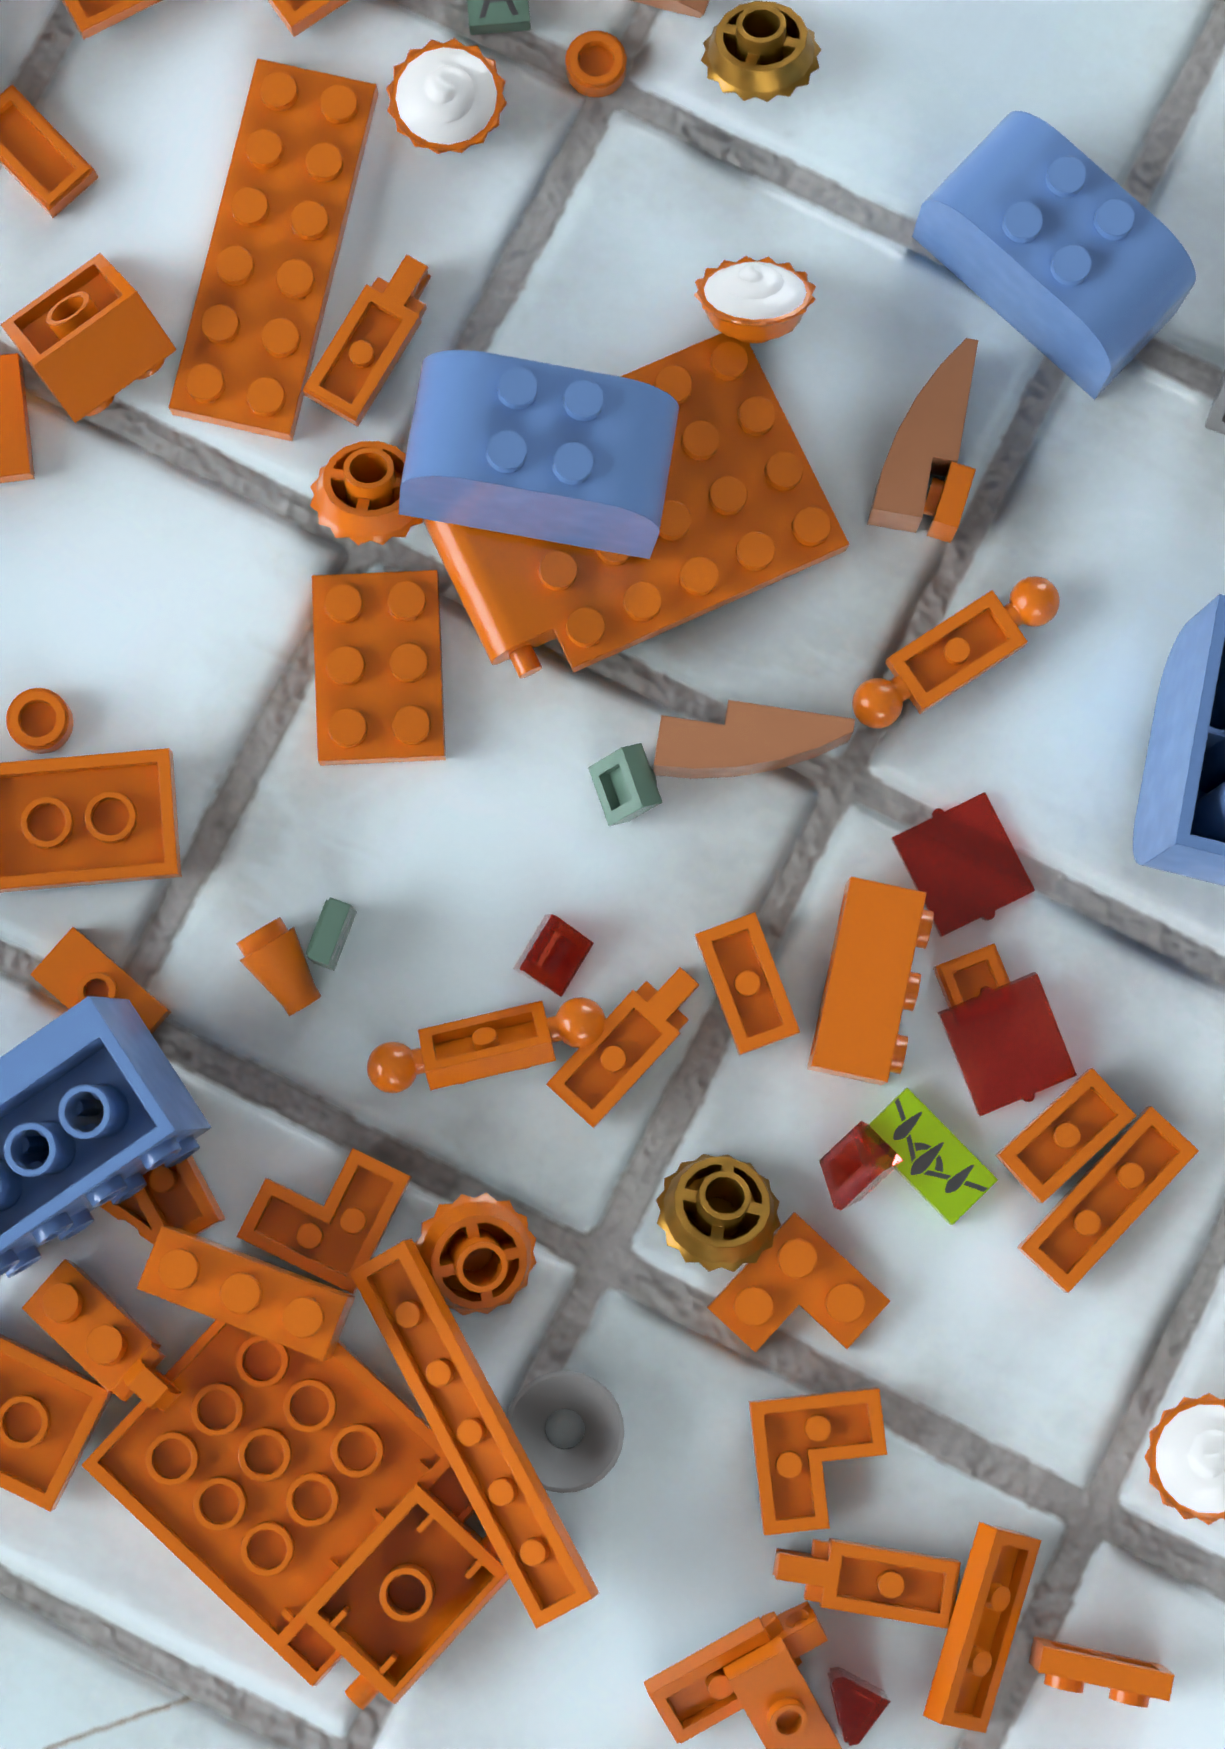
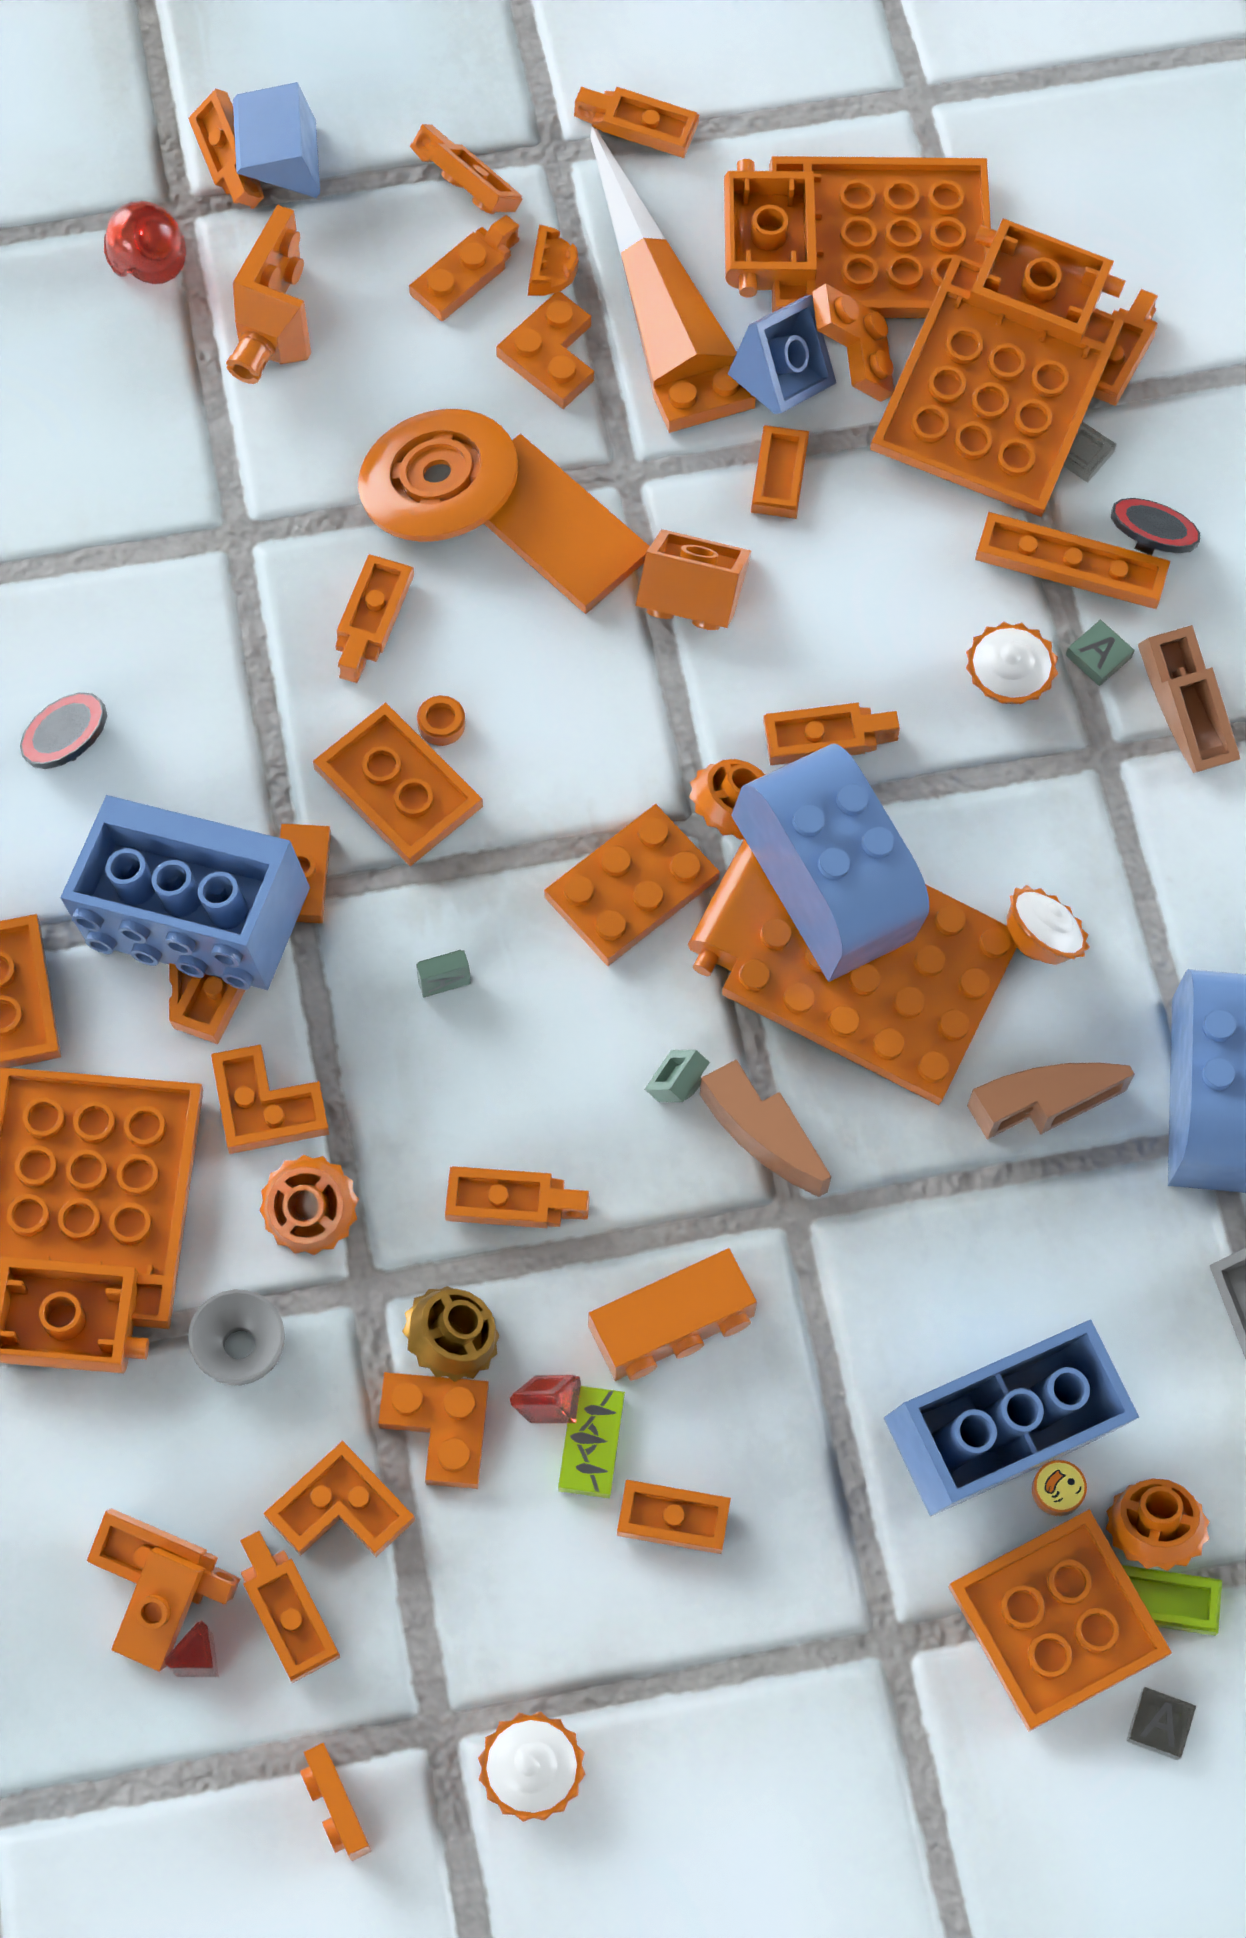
camera: 50 degrees right, 15 degrees down
(101, 1336) = (89, 1022): orange hinge -> none
(246, 1292) = (179, 1077): orange brick -> none
(274, 250) = (837, 641): orange plate -> none
(280, 965) = (400, 953): orange cone -> none
(474, 1433) = (192, 1278): orange plate -> none
(485, 1045) = (445, 1113): orange plate -> none
(553, 954) = (536, 1115): clear red slope -> none
(596, 64) = (1111, 736): orange tile -> none
(747, 983) = (611, 1243): orange plate -> none
(761, 51) = (1203, 820): pearl gold piece -> none
(947, 501) = (1020, 1138): orange plate -> none
(956, 652) = (929, 1215): orange plate -> none
(963, 864) = (798, 1325): clear red piece -> none
(967, 974) = (726, 1389): orange tile -> none
(982, 1628) = (306, 1702): orange plate -> none
(1007, 1043) = (703, 1435): clear red piece -> none
(1107, 1199) = (653, 1575): orange plate -> none

